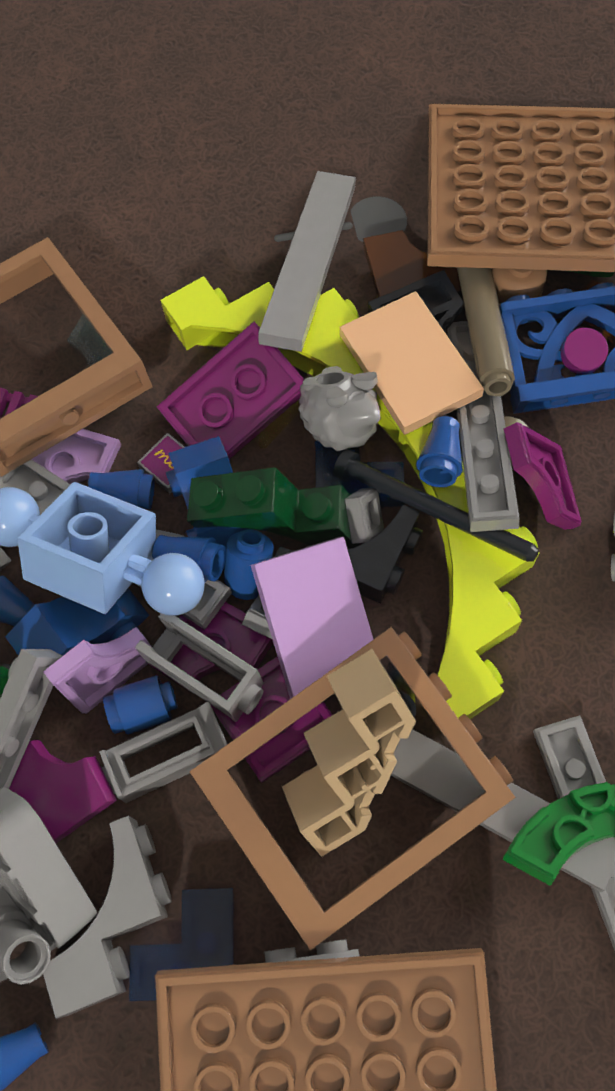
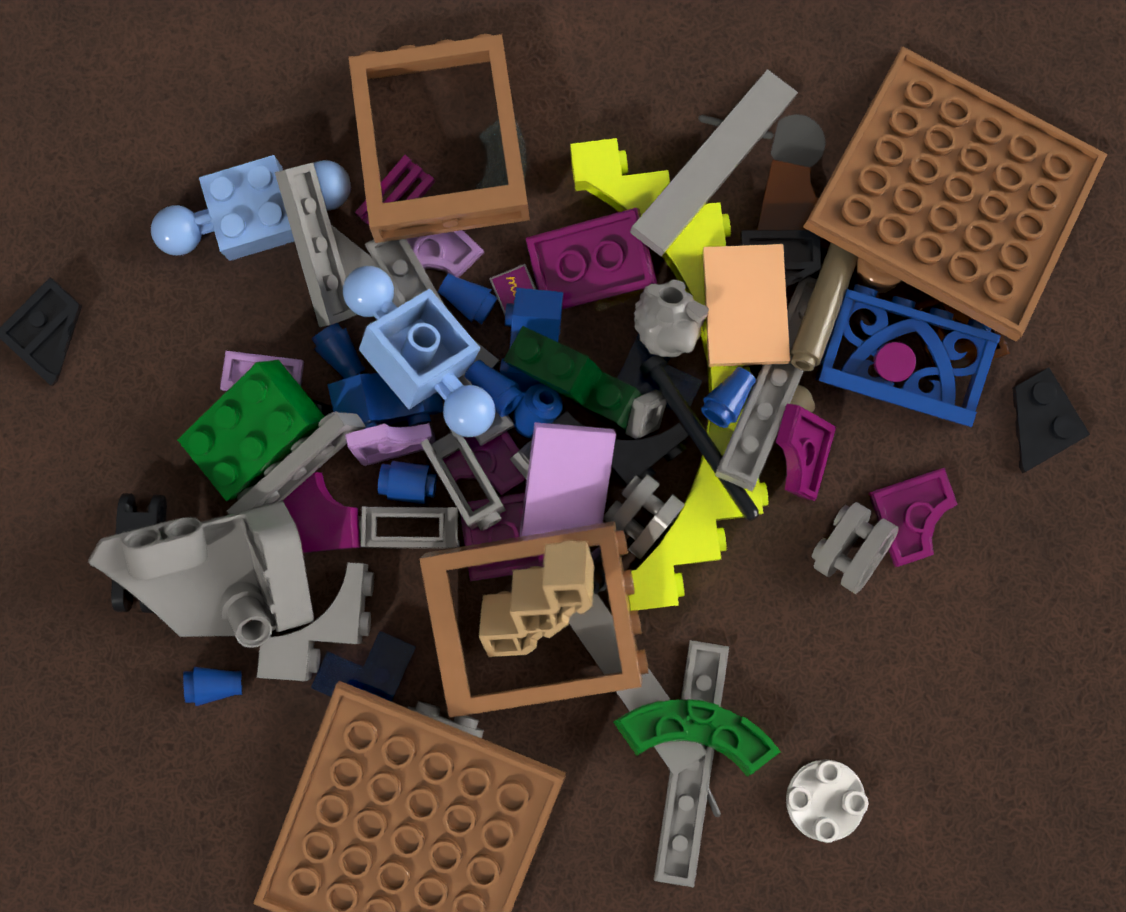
camera: 25 degrees right, 15 degrees up
(399, 594) = (640, 494): none -> light grey brick

